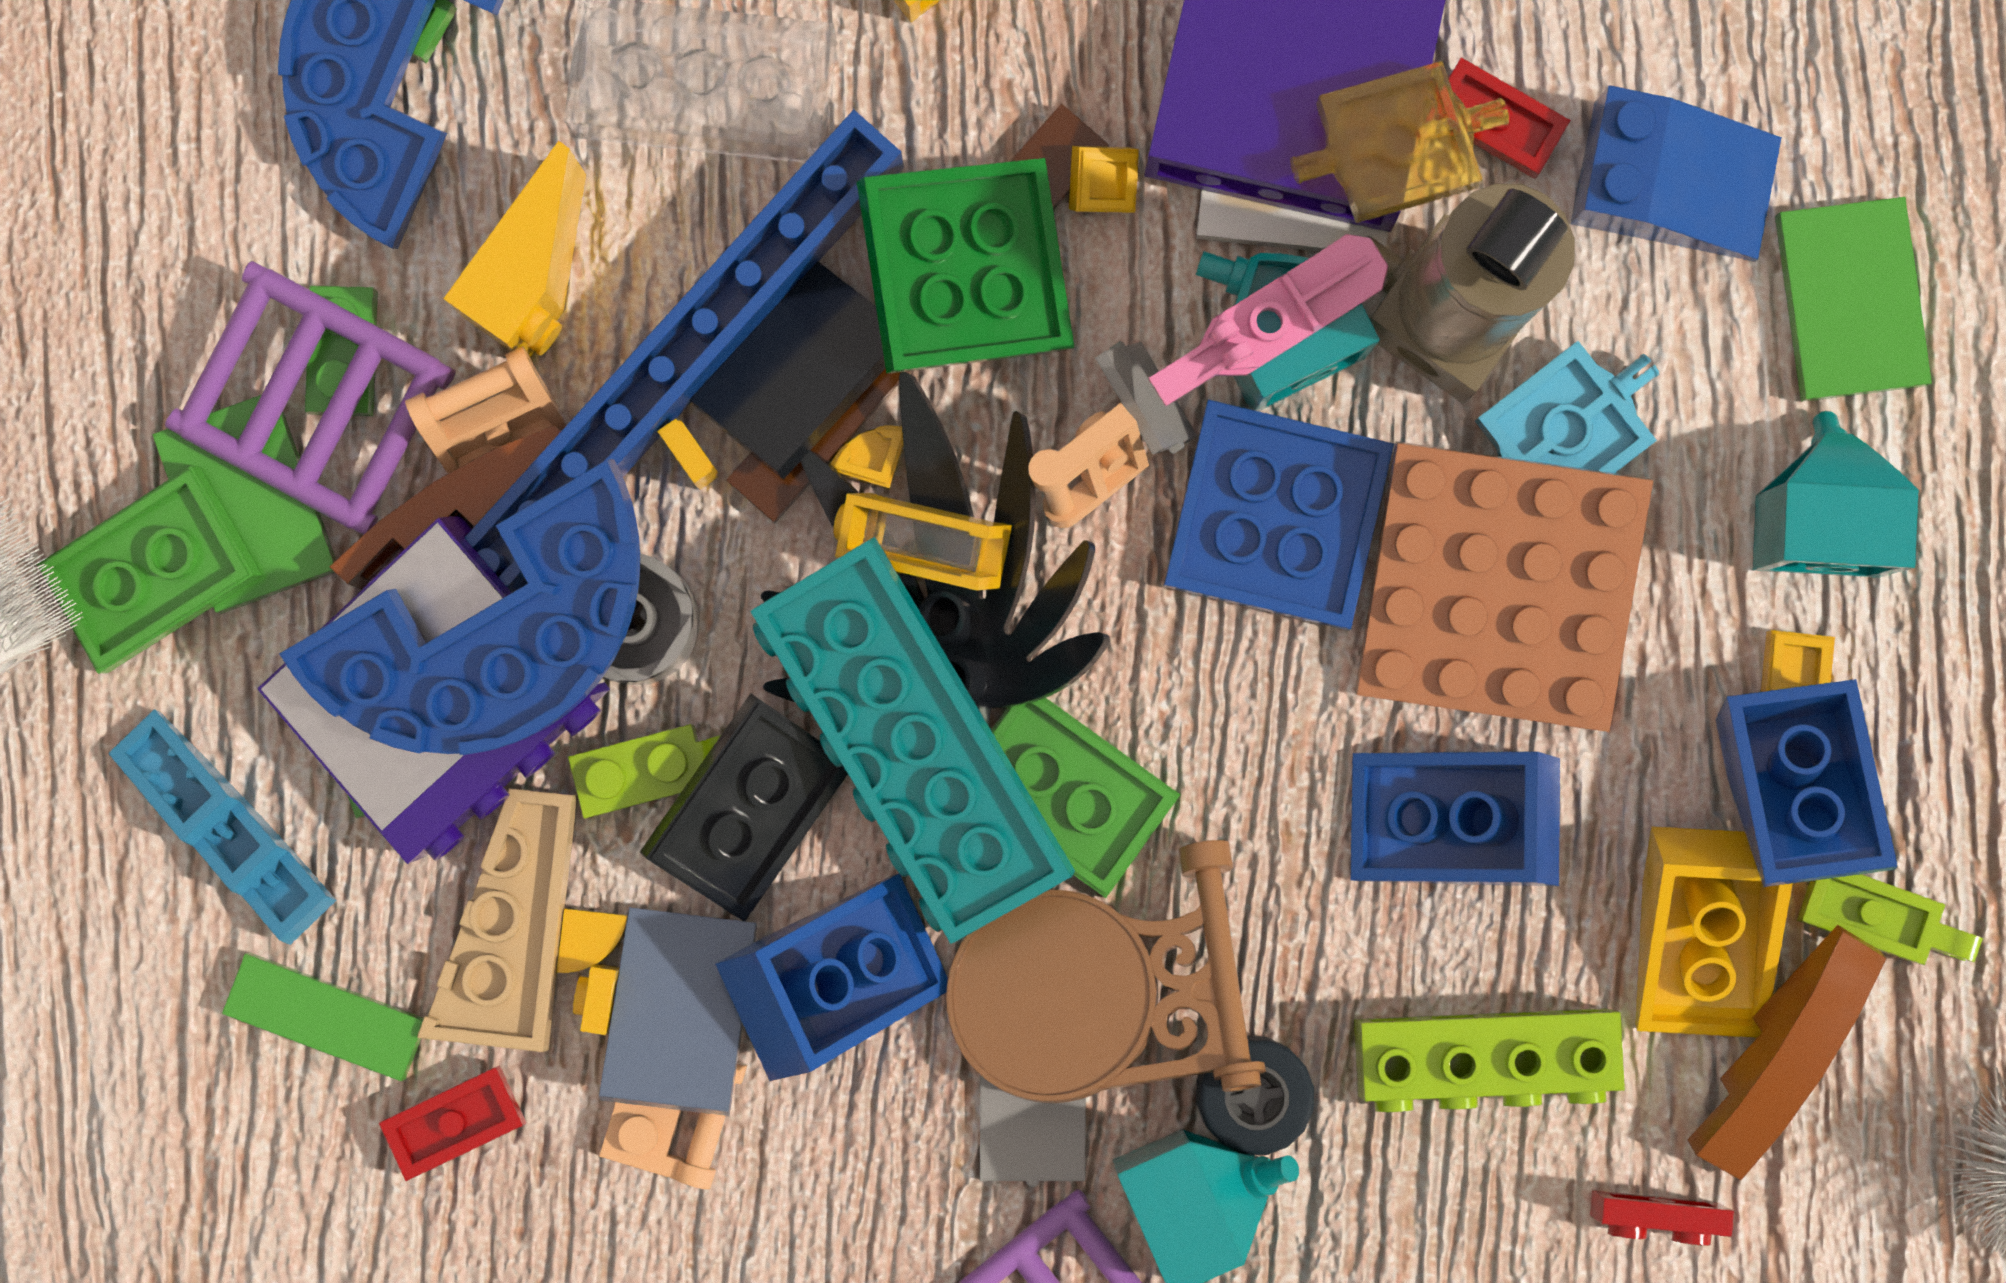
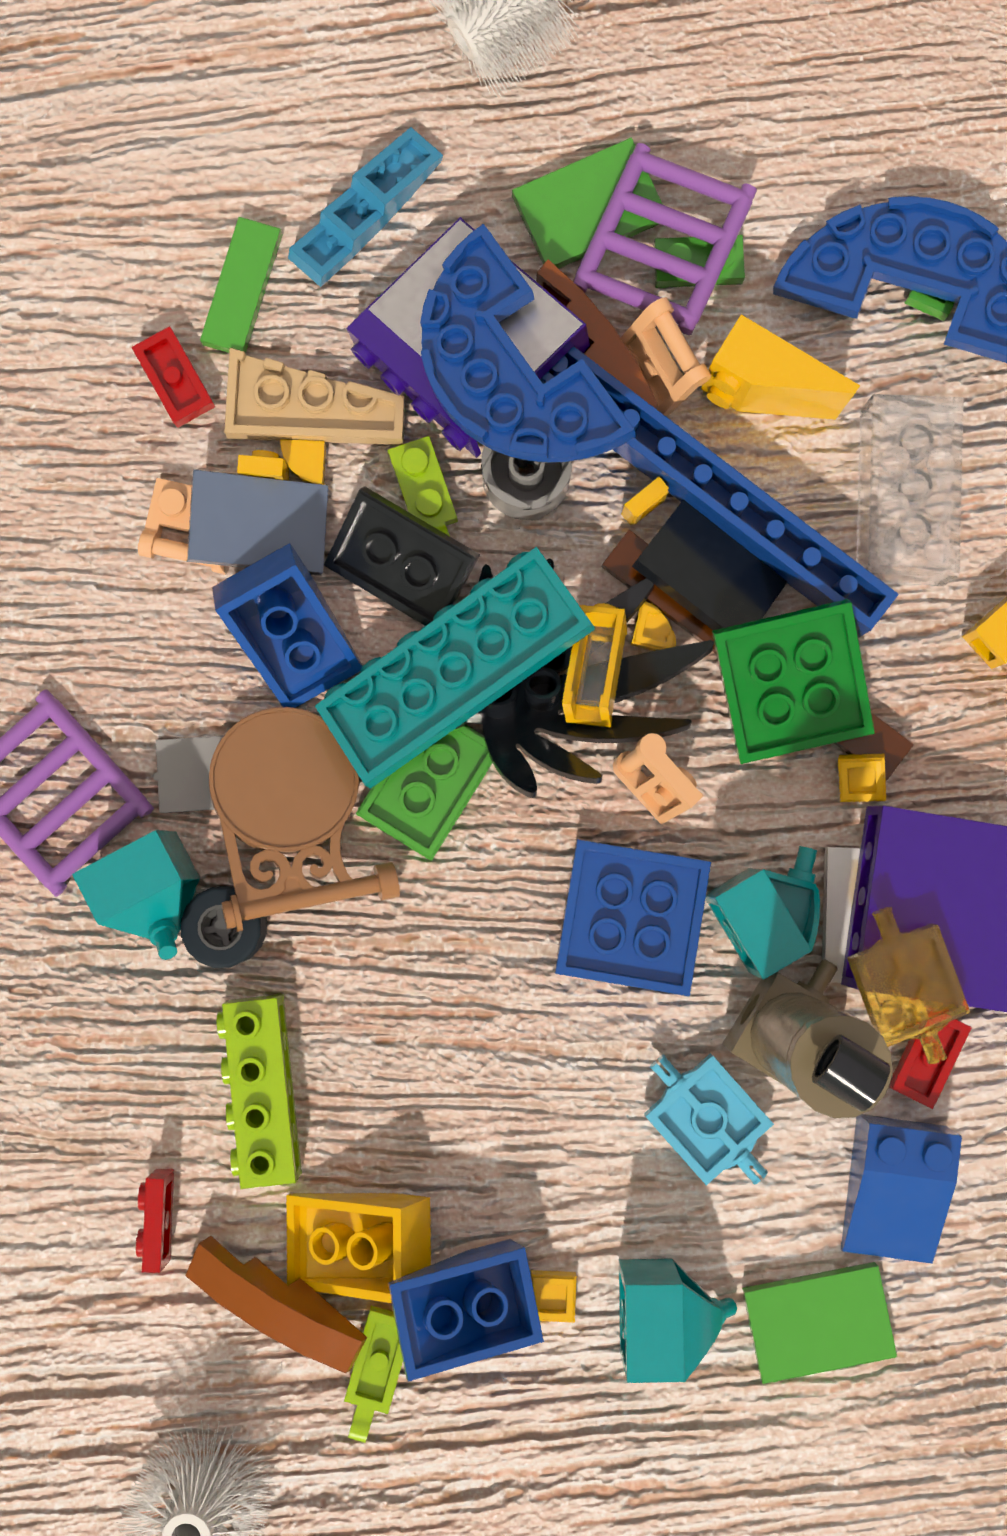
camera: 90 degrees right, 0 degrees up
(150, 569) = (538, 142): bright green tile -> none
(1128, 374) = (709, 817): light grey piece -> none
(1303, 300) = (788, 921): bright pink piece -> none
(1456, 818) = (426, 1057): blue slope -> none
(1503, 586) = (594, 1081): nougat plate -> none

